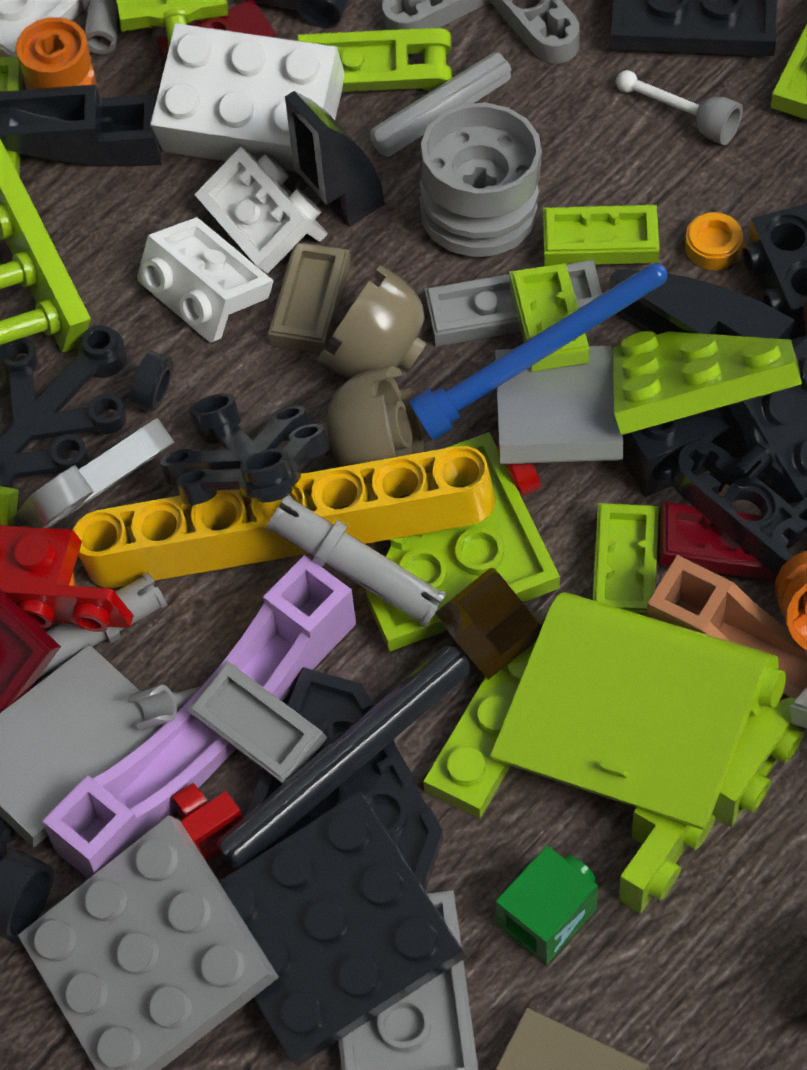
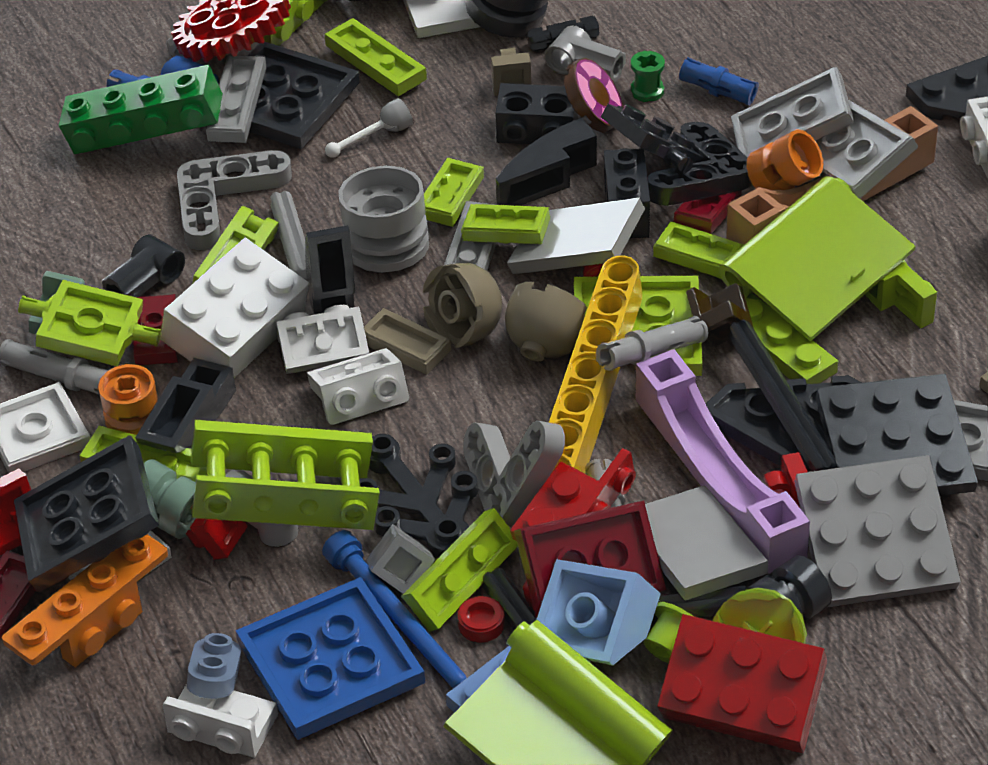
camera: 70 degrees left, 15 degrees down
(151, 381) = (430, 427): black tile -> none
(160, 704) = (695, 481): light grey hand -> none
(257, 723) = (737, 431): light grey tile -> none
(263, 471) = (581, 346): black plant -> none
(441, 407) = (539, 215): blue piece -> none
(547, 903) = (919, 345): green brick -> none
(693, 373) = (610, 158): lime plate -> none
(714, 241) = (483, 149): light orange tile -> none

